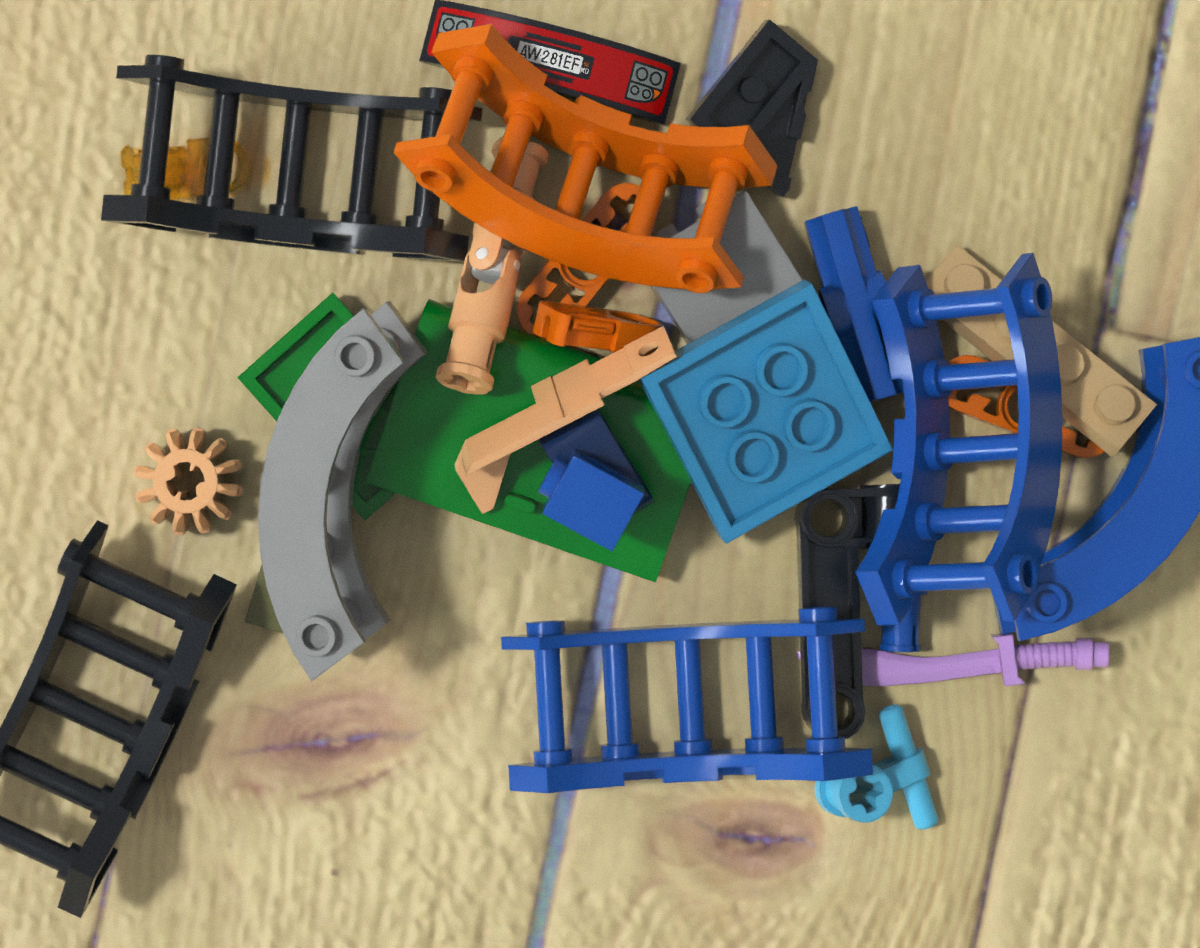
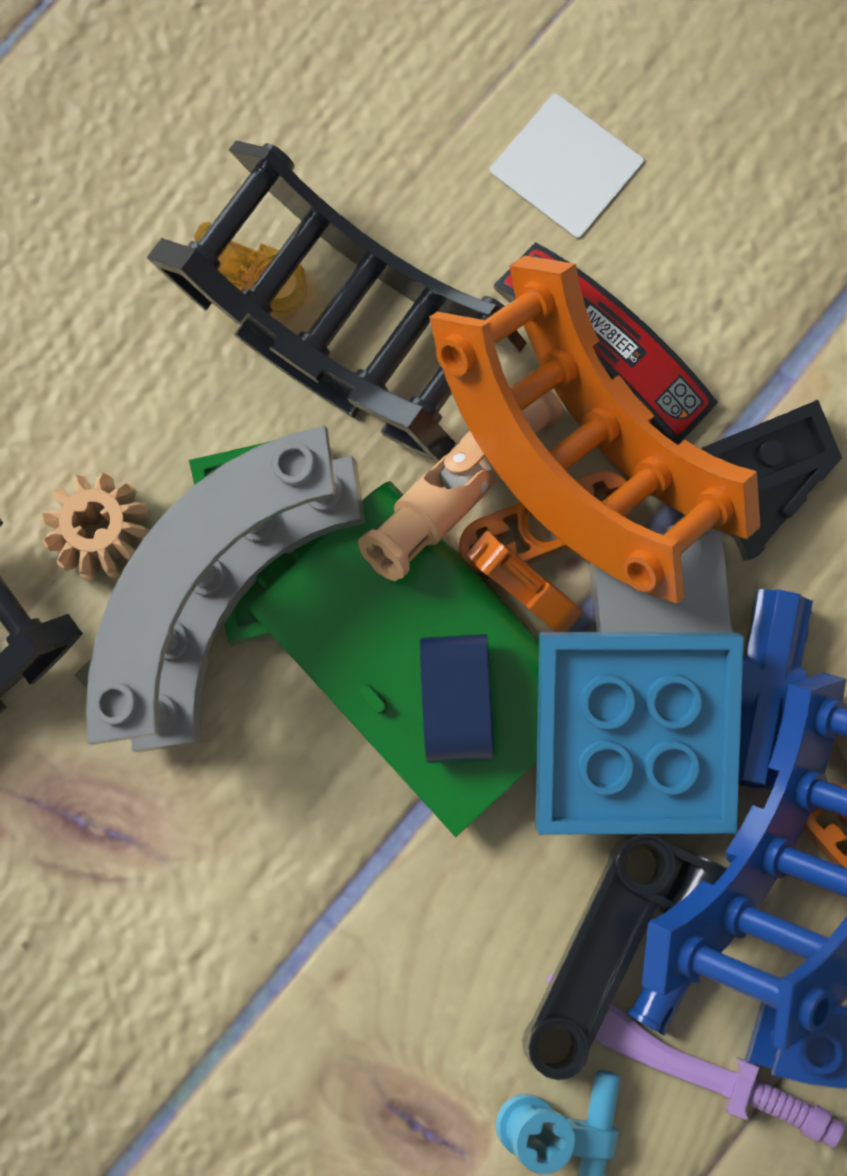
camera: 30 degrees right, 10 degrees down
(558, 403) = (368, 634): light nougat piece -> none
(590, 498) = (436, 718): blue brick -> none
(693, 754) = (403, 1019): blue fence -> none

